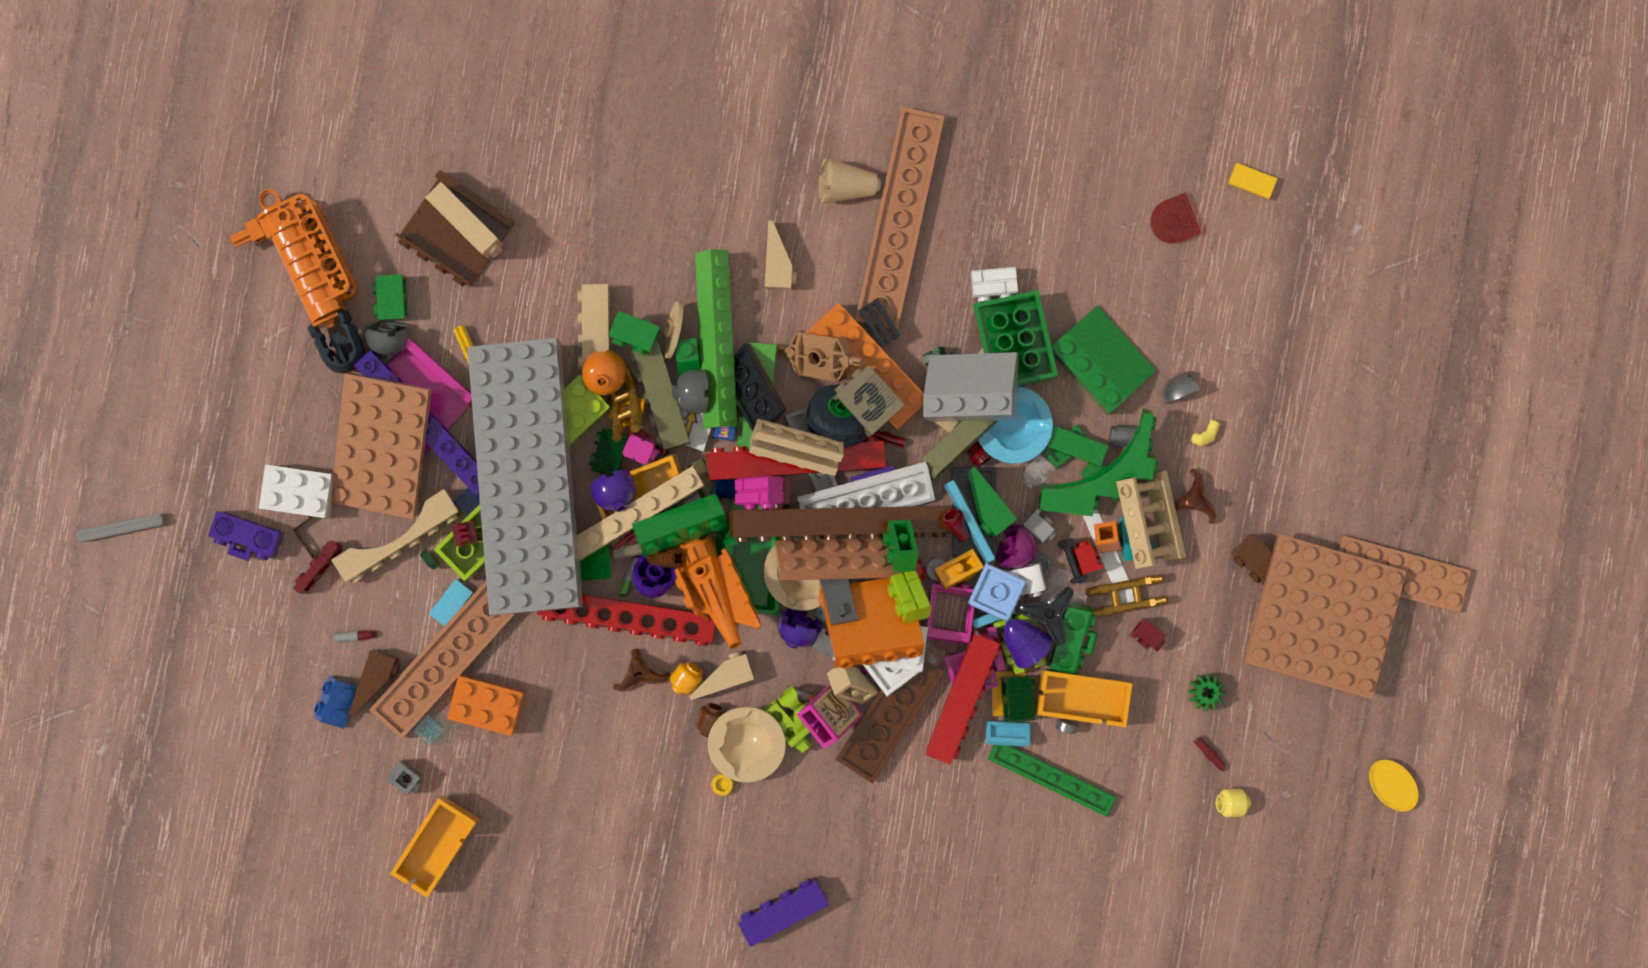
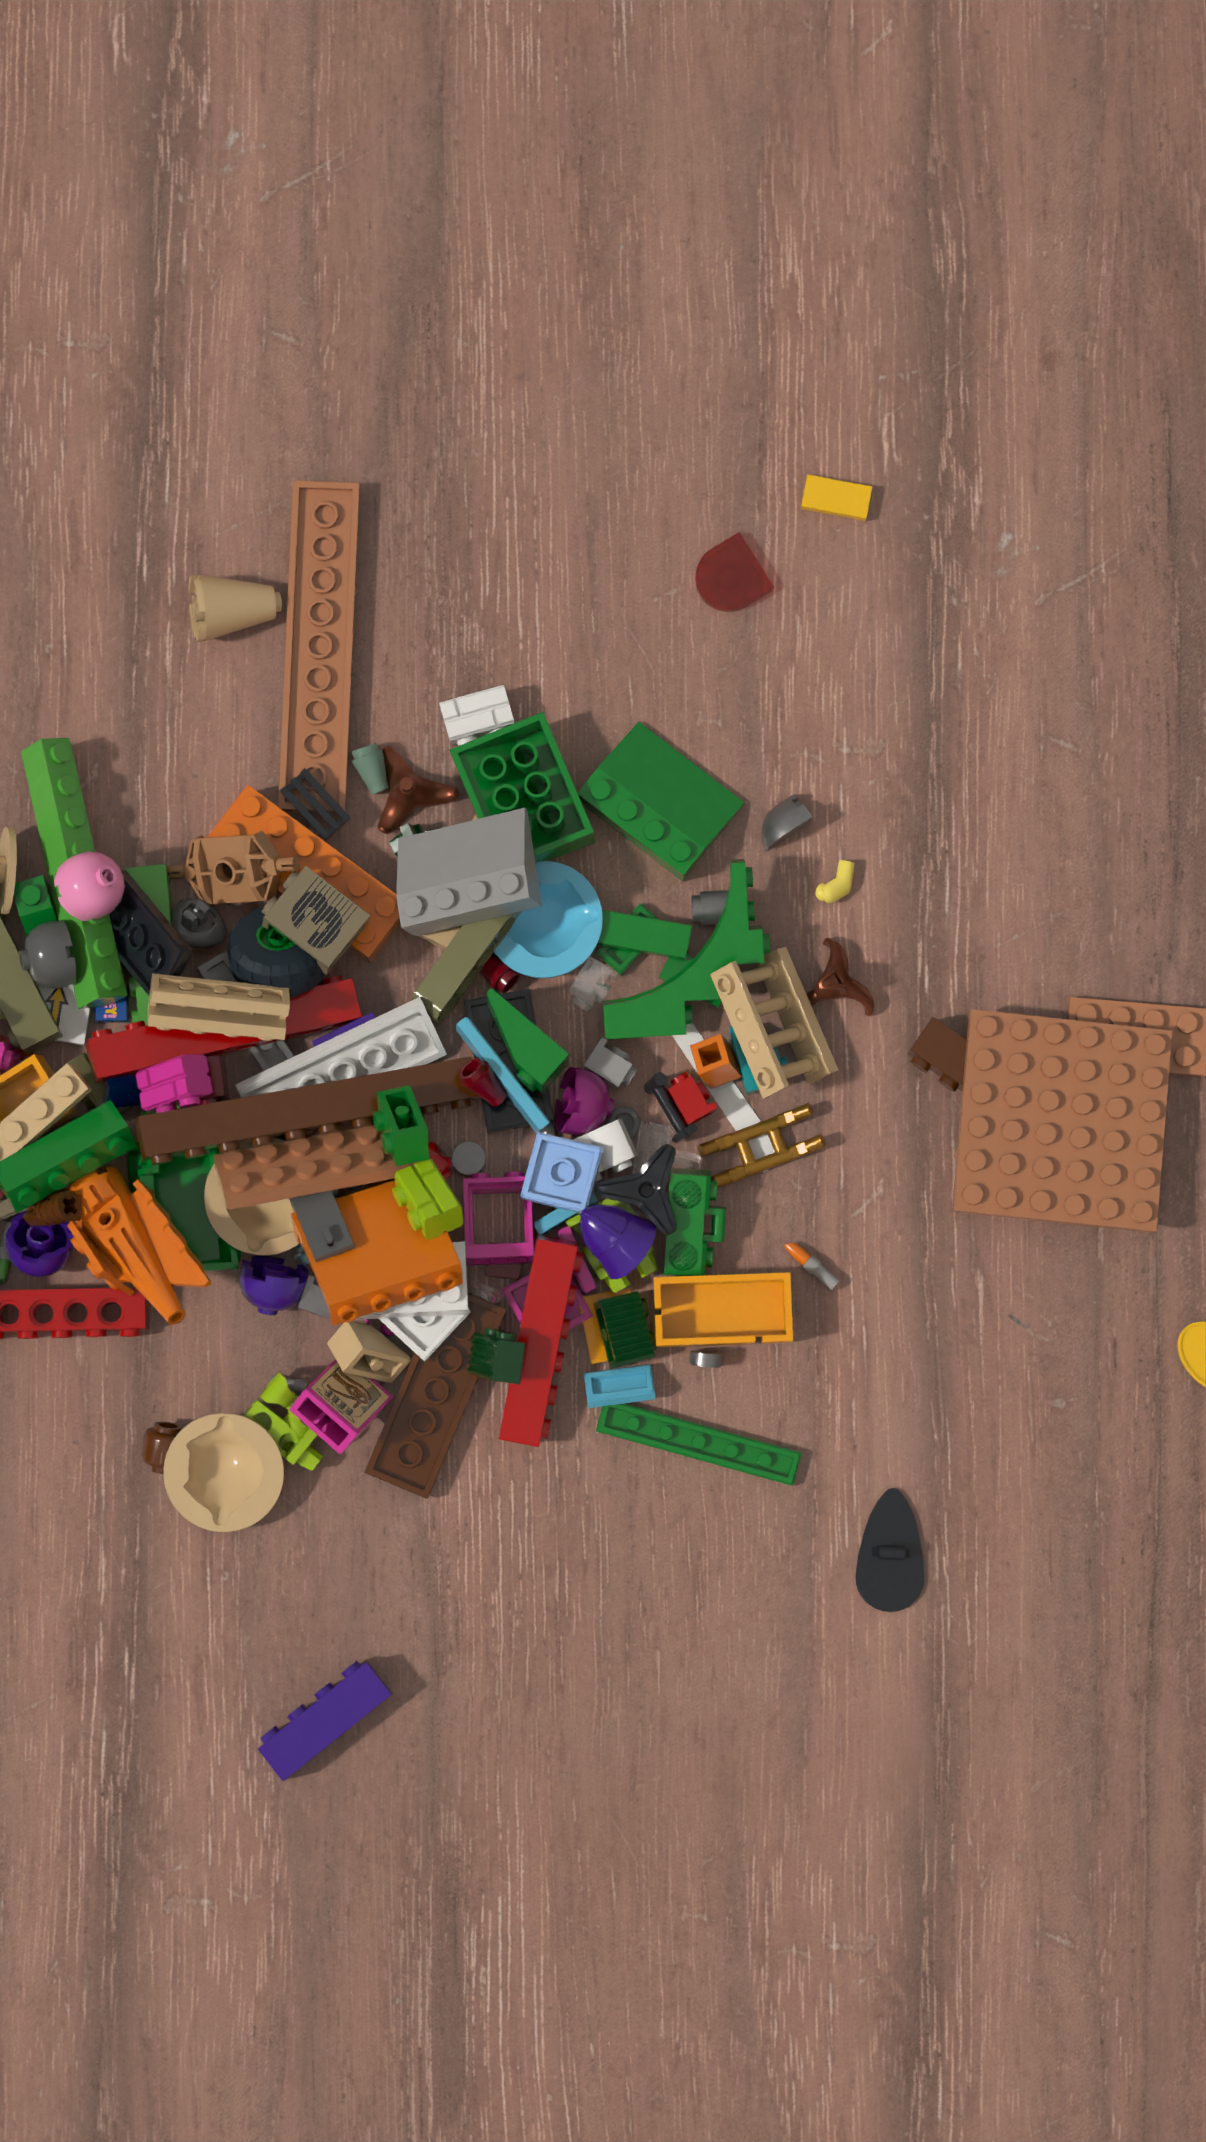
camera: 10 degrees left, 5 degrees down
(639, 672) = (43, 1395): reddish brown piece -> none
(686, 678) = (116, 1390): light orange head -> none
(722, 785) = (199, 1543): yellow tile -> none
(726, 352) = (89, 885): none -> bright pink cylinder
(729, 674) = (177, 1374): tan slope -> none
(779, 270) = (150, 751): tan slope -> none
(790, 386) = (198, 923): none -> dark grey piece
(887, 437) = (358, 974): dark red piece -> none
(919, 304) = (371, 767): none -> sand green cone
(934, 703) = (497, 1356): none -> dark green brick
(940, 324) = (408, 792): none -> copper piece
(958, 569) = (499, 1150): light orange slope -> none
(1145, 678) = (812, 1265): none -> light grey piece
(1148, 635) = (804, 1199): dark red brick -> none
(1160, 872) = (890, 1555): none -> black shield
(1198, 689) = (907, 1280): green gear -> none
(1210, 753) = (932, 1362): dark red piece -> none
(1233, 802) = (979, 1428): light yellow head -> none

